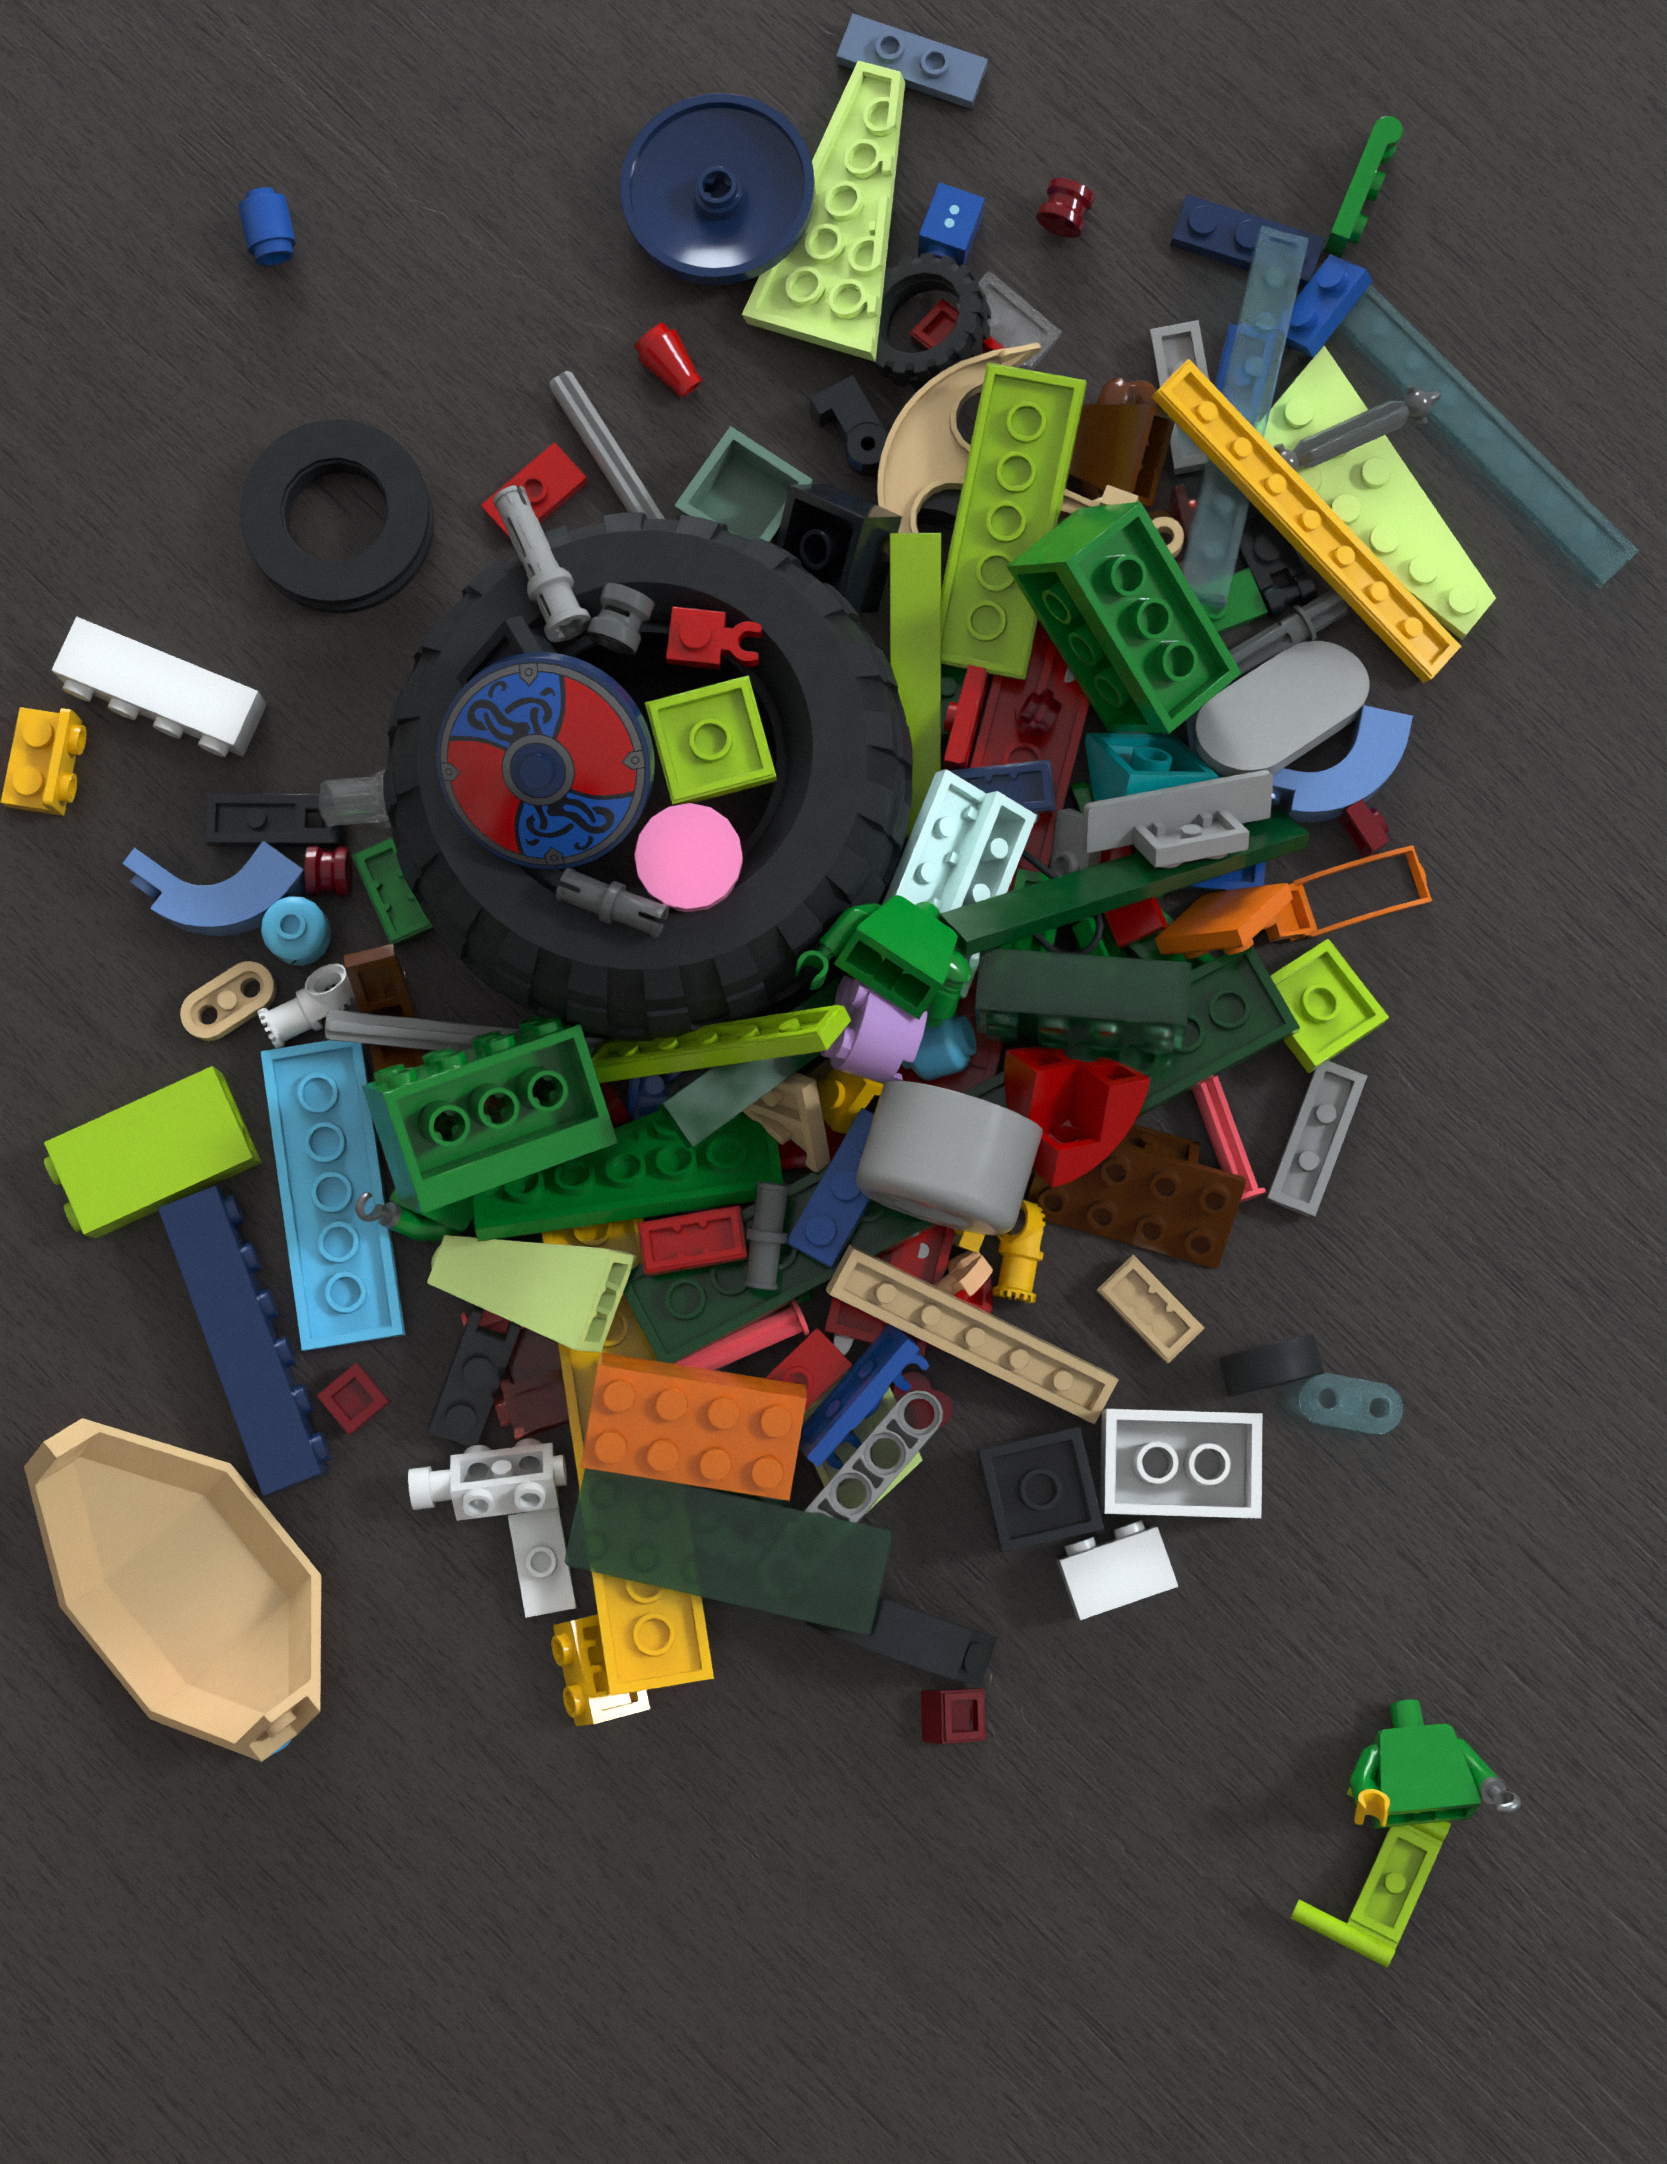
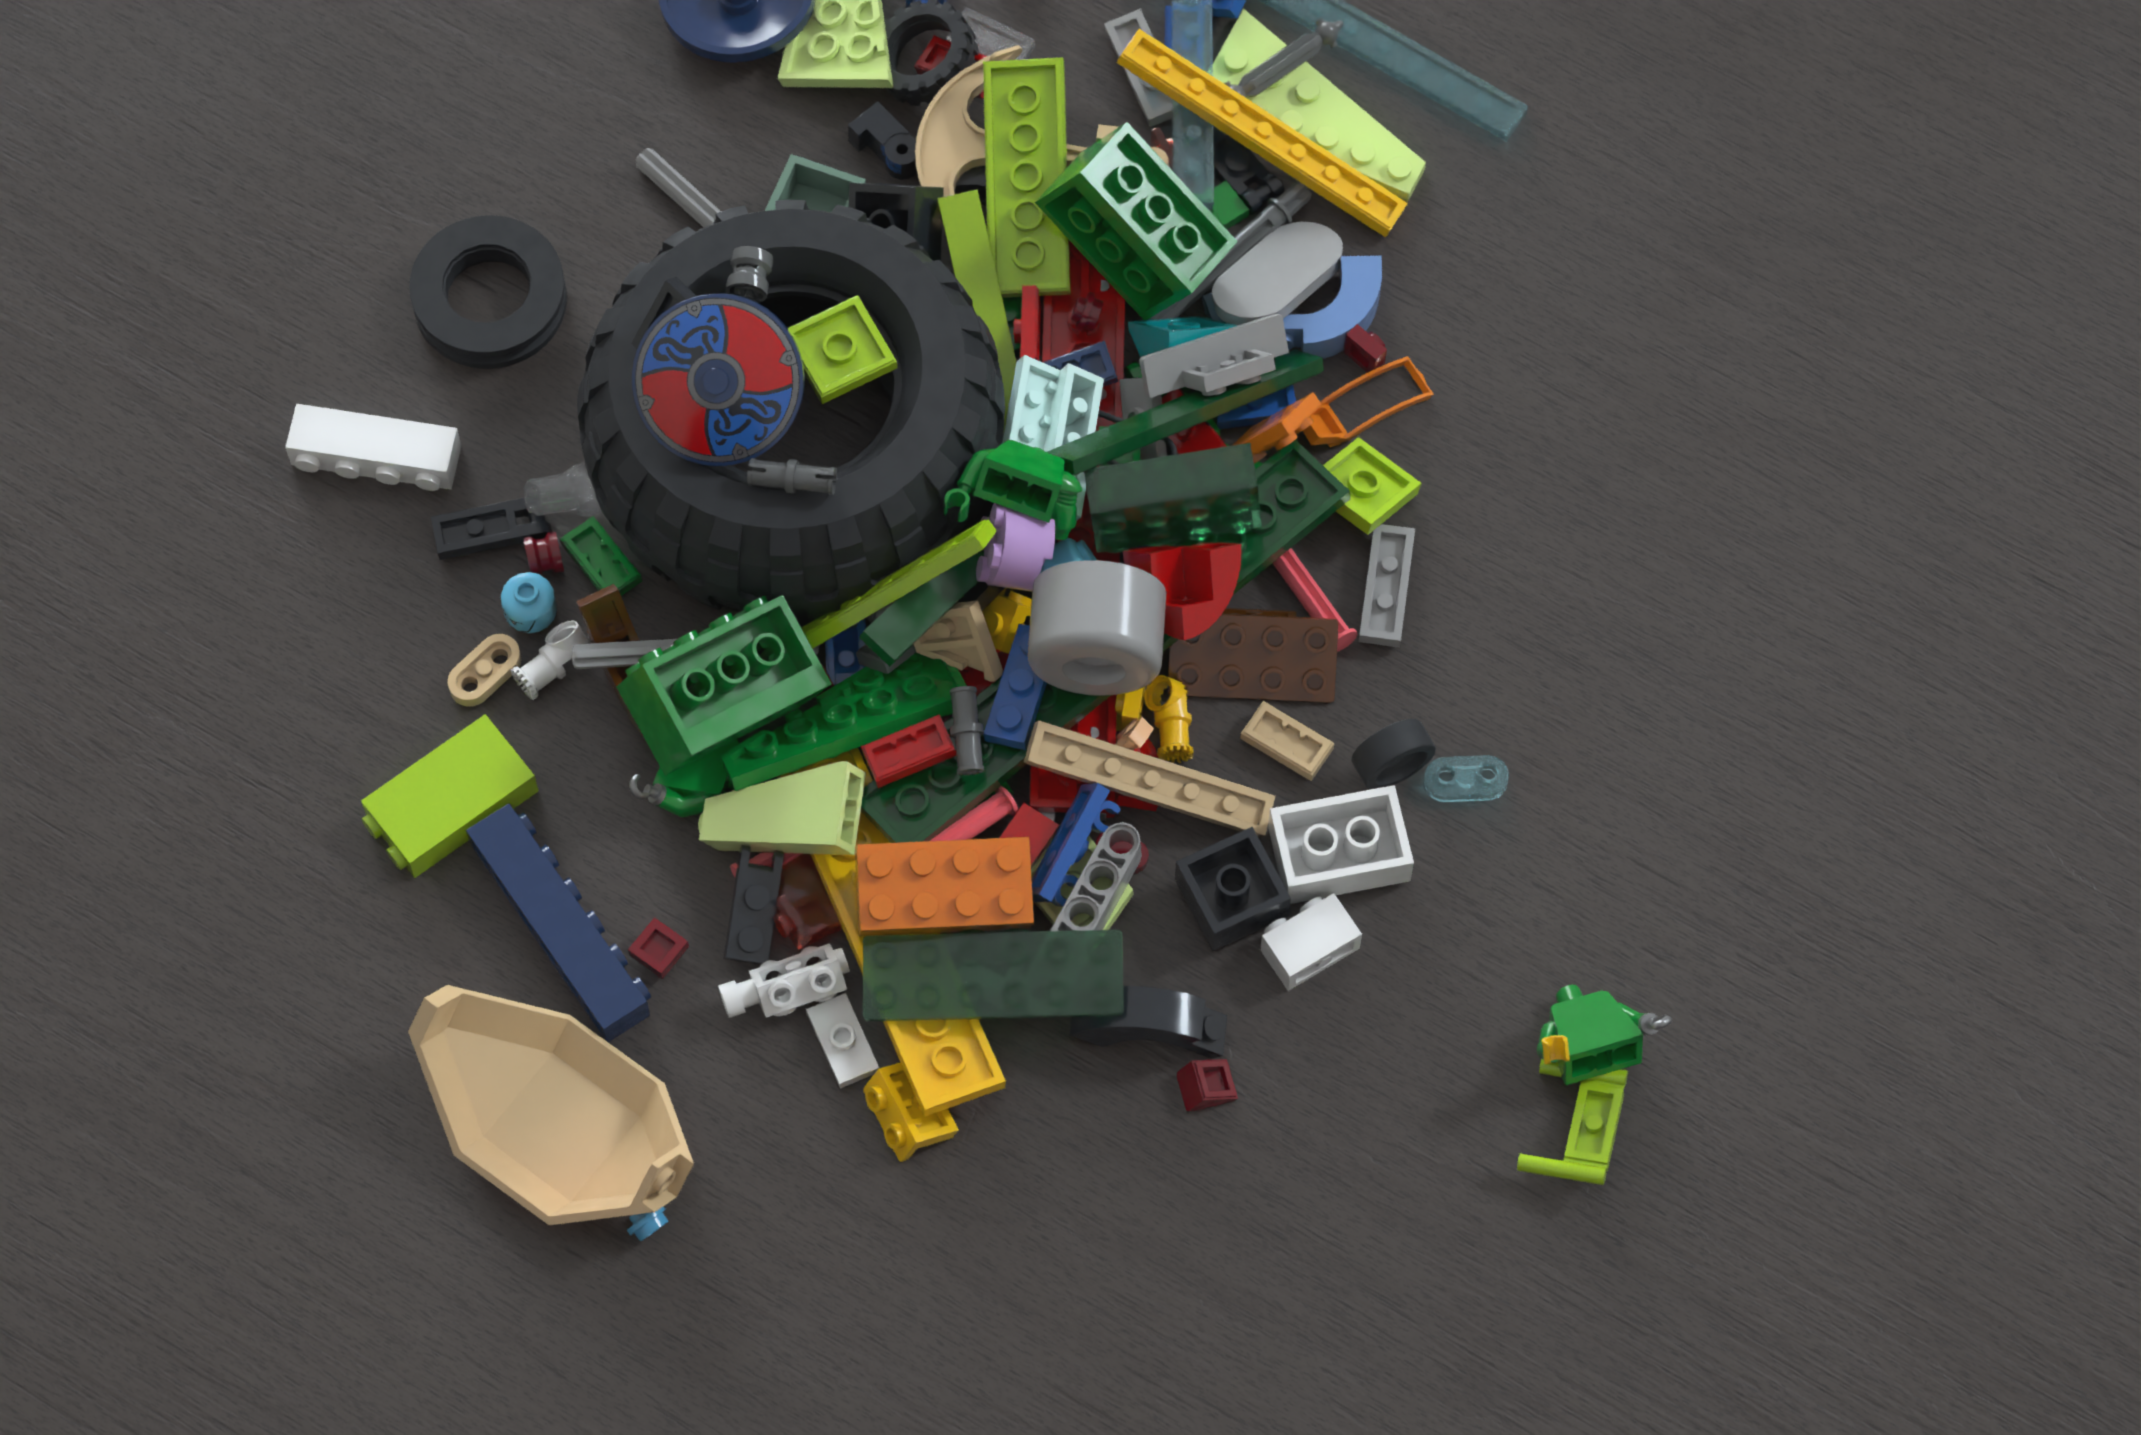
camera: 15 degrees left, 15 degrees down
(43, 761) = (289, 524): yellow bracket -> none
(223, 907) = (460, 600): medium blue arch -> none
(267, 226) = (381, 92): blue brick -> none
(323, 1164) = (592, 776): medium azure plate -> none
(548, 483) = (641, 241): red plate -> none
(548, 583) = (687, 261): light grey pin -> none
(667, 358) = (726, 123): red cone -> none
(688, 857) = (843, 433): bright pink tile -> none
(701, 639) = (814, 278): red plate -> none
(1122, 443) = (1100, 97): reddish brown torso -> none

